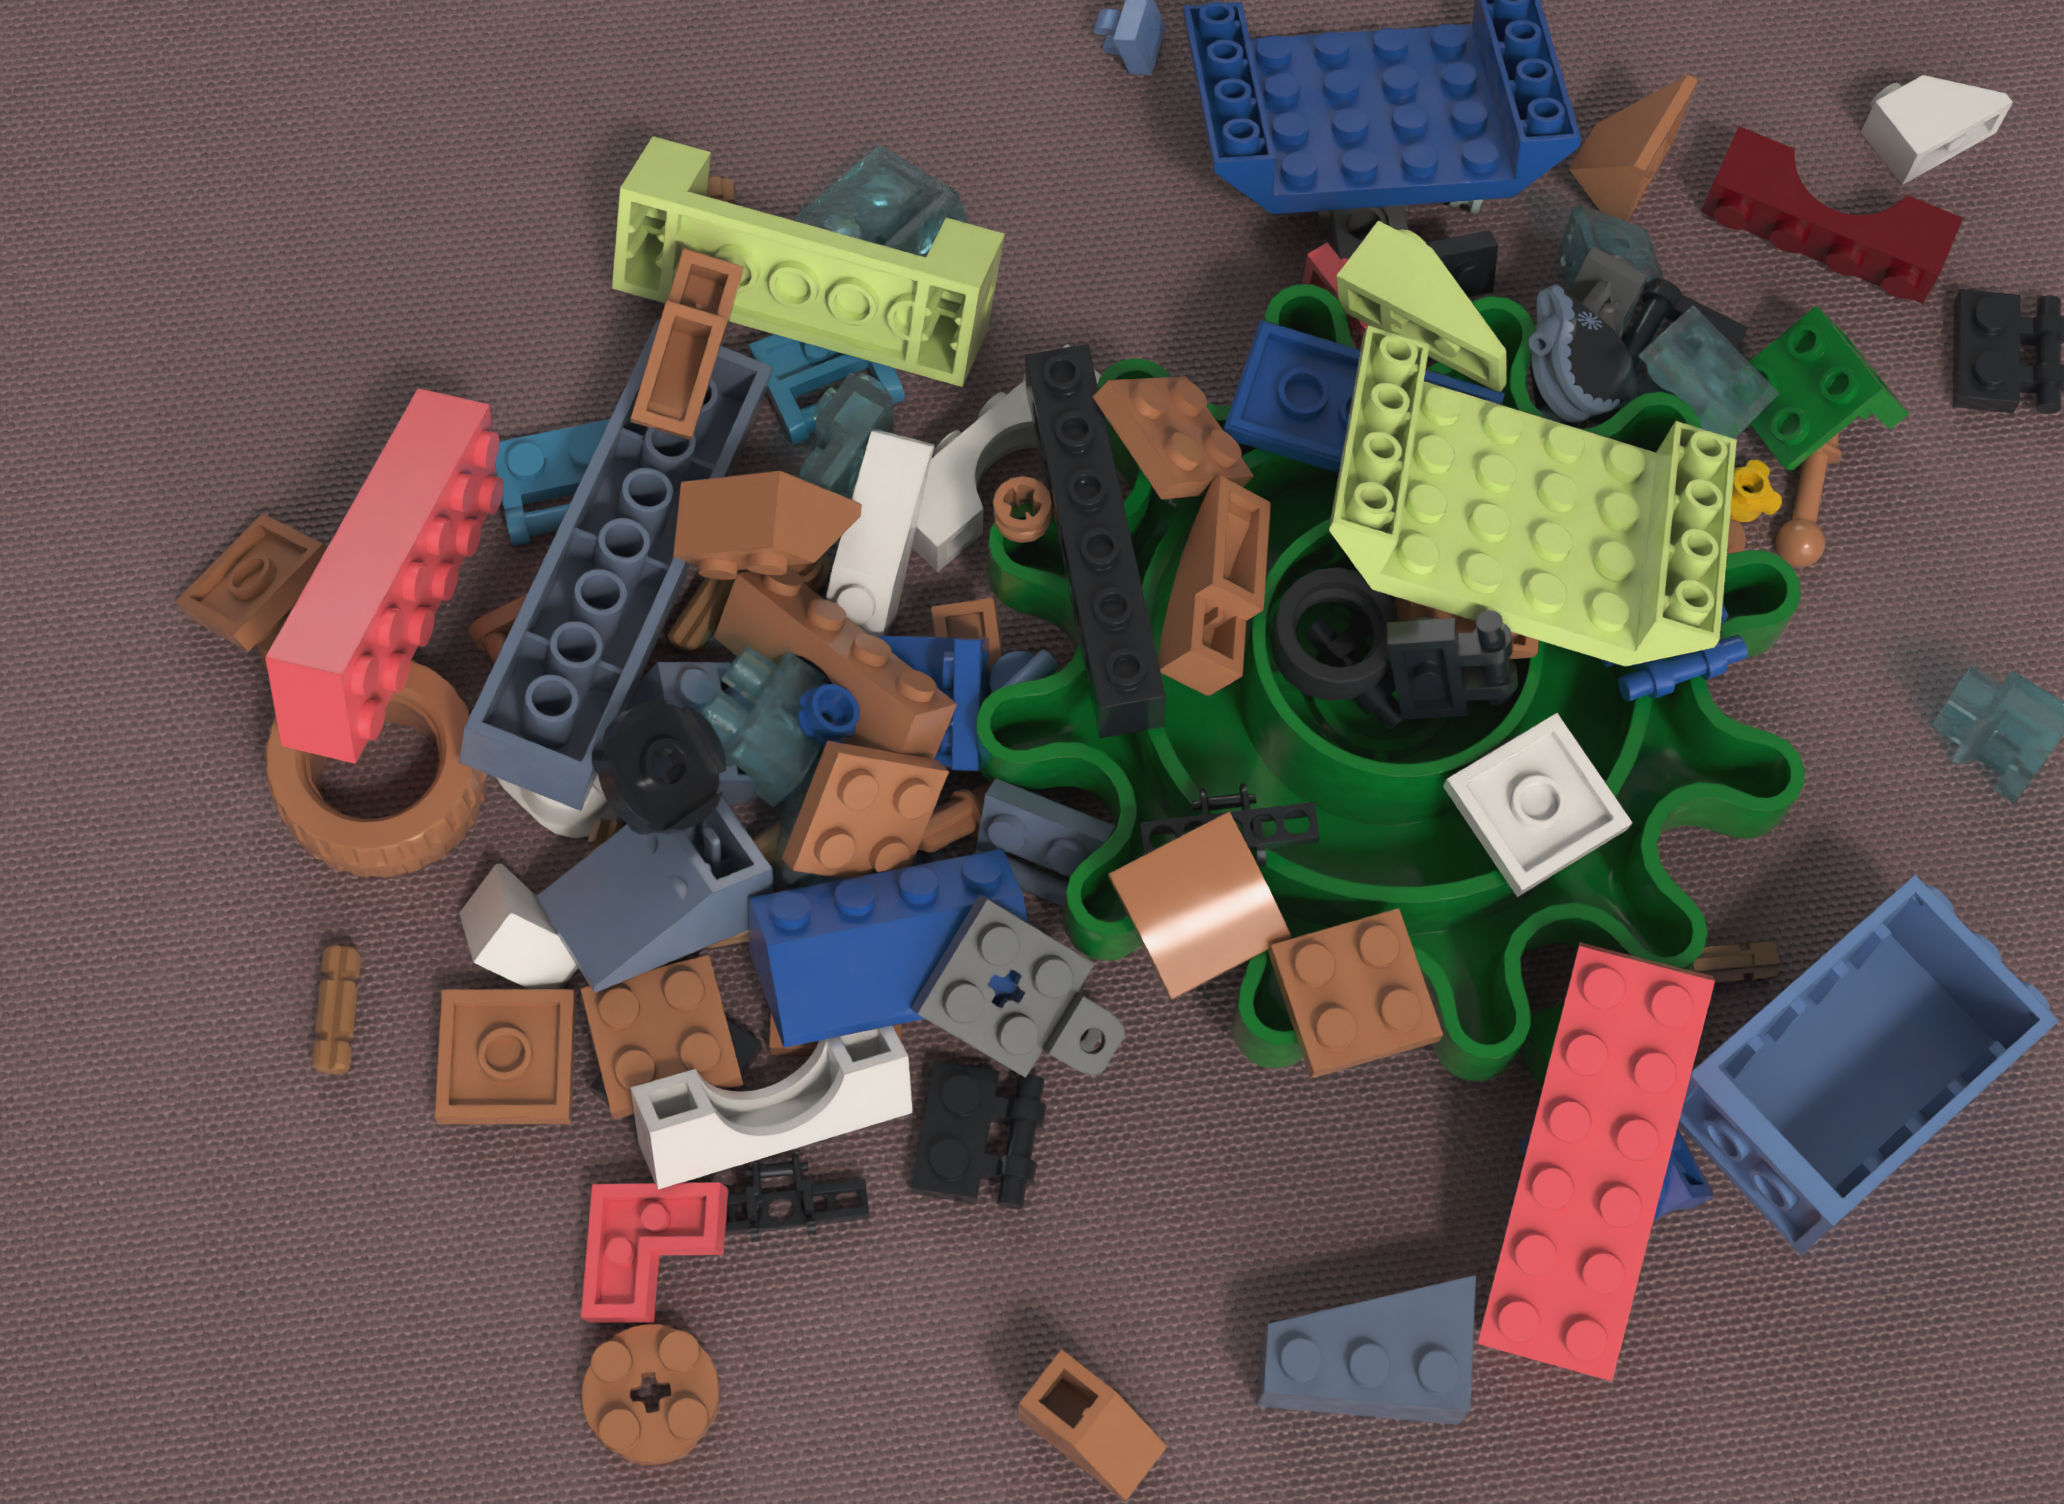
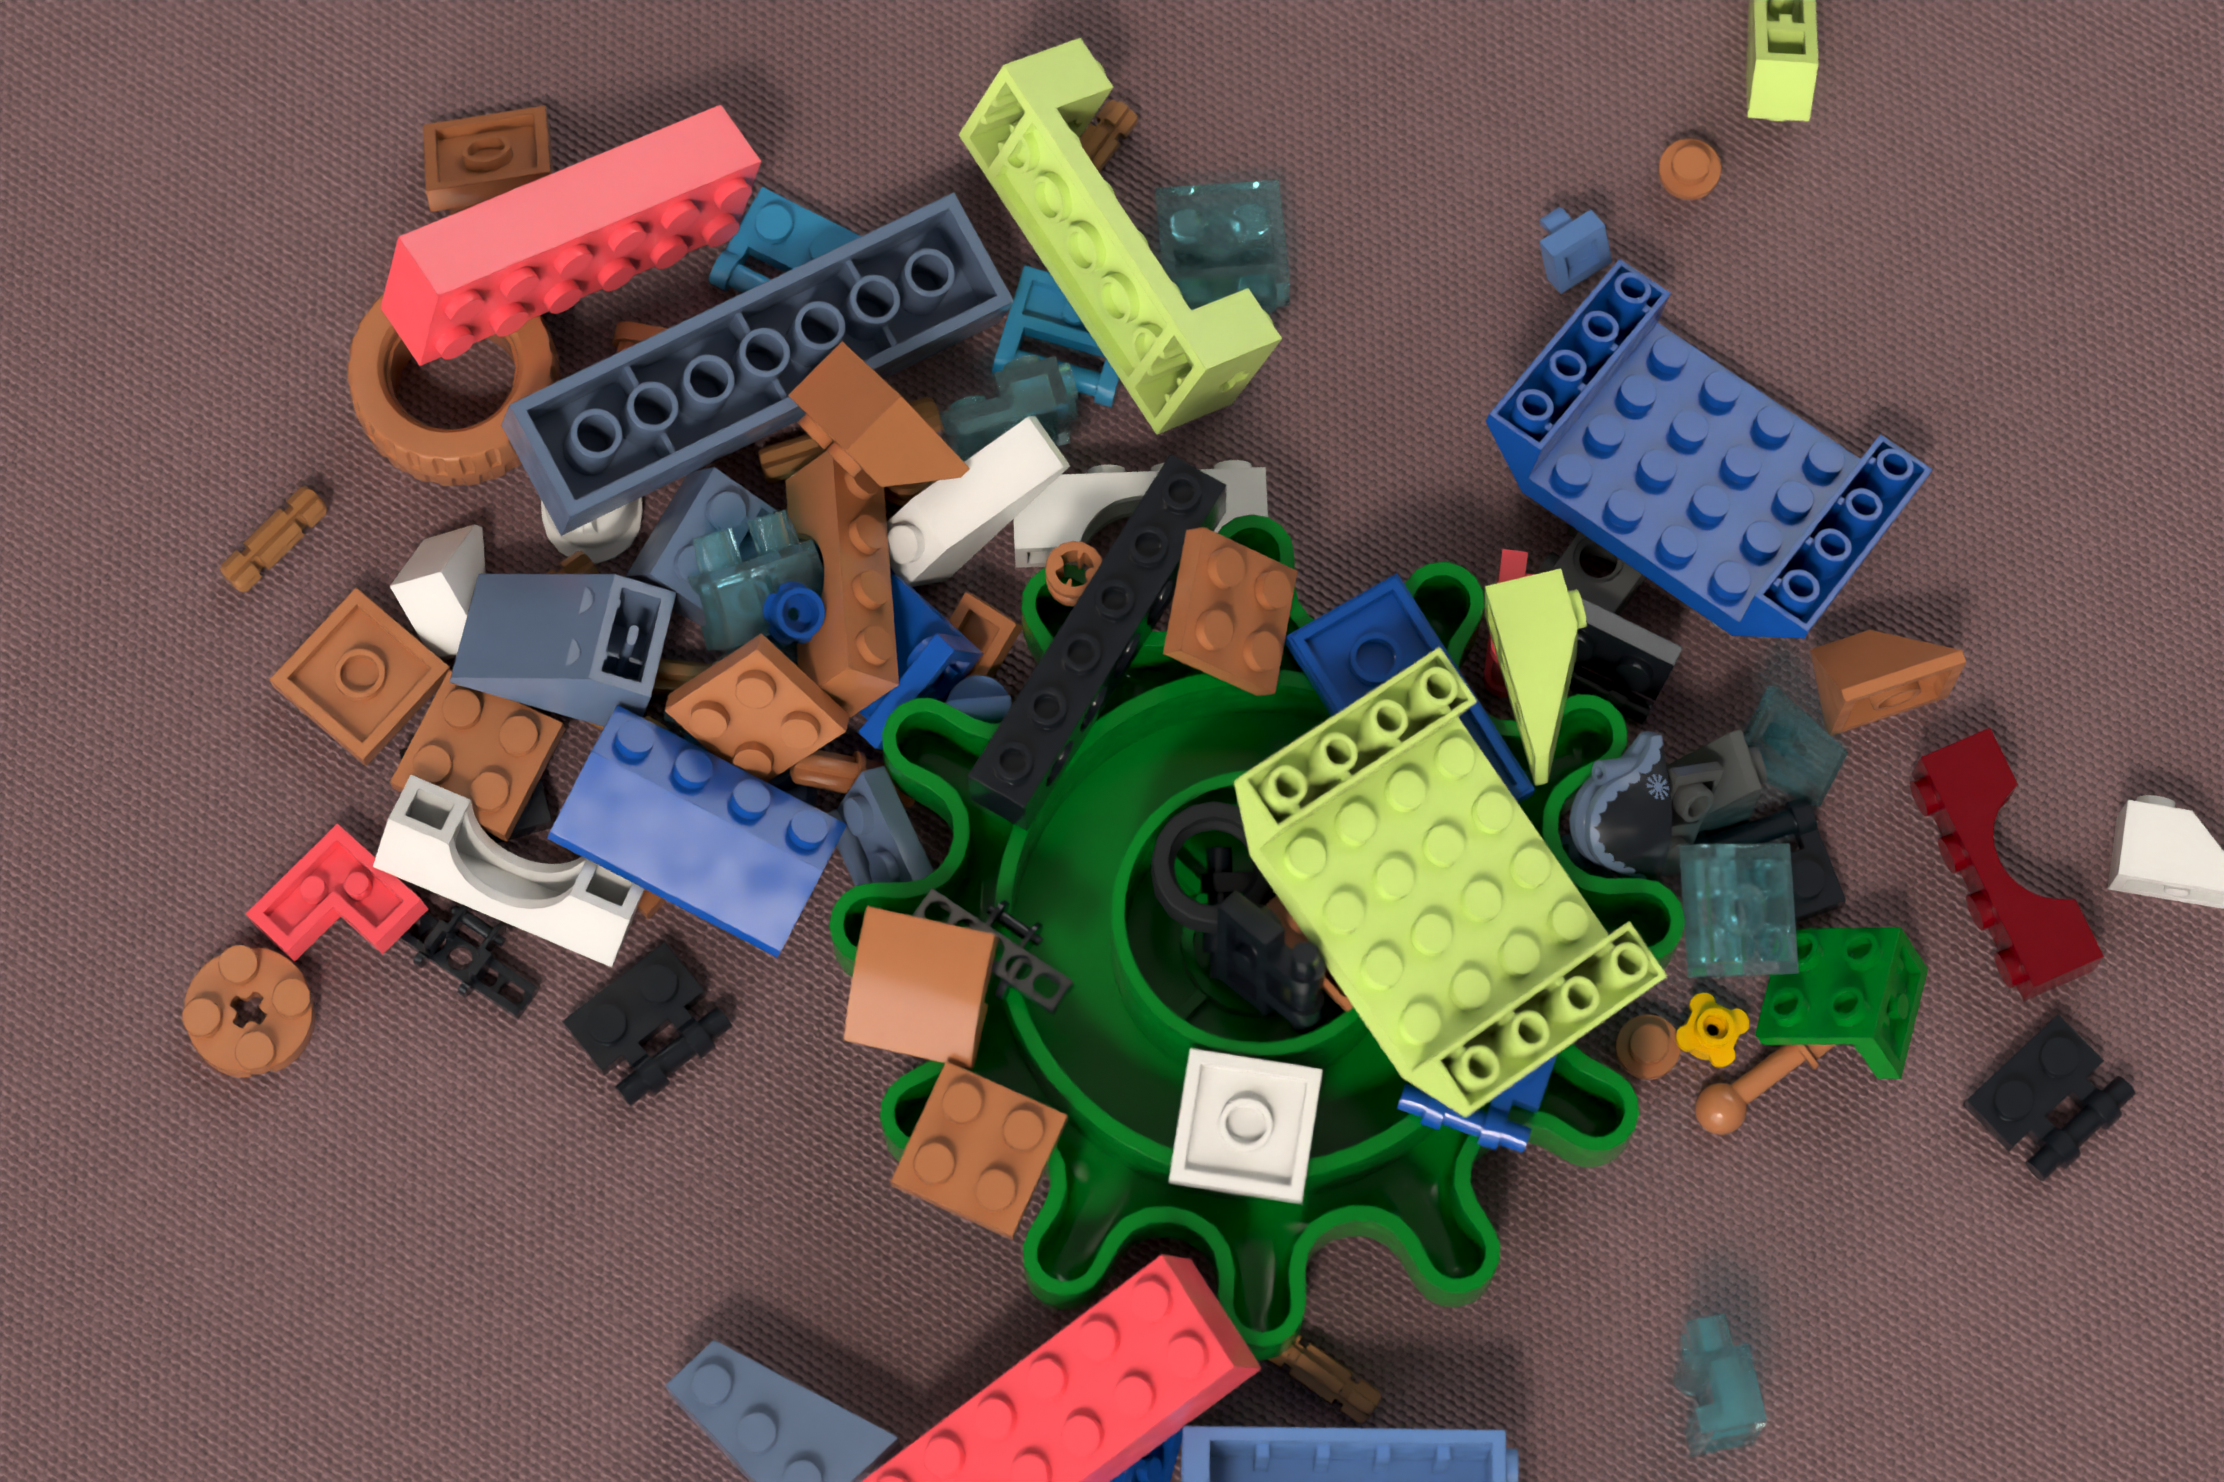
camera: 45 degrees right, 5 degrees up
(627, 774) = (656, 579): black plate -> none
(687, 344) = (949, 233): nougat slope -> none
(1043, 1012) = (765, 974): plate -> none
(1091, 1425) = (528, 1303): nougat slope -> none
(1216, 589) = (1154, 756): nougat slope -> none

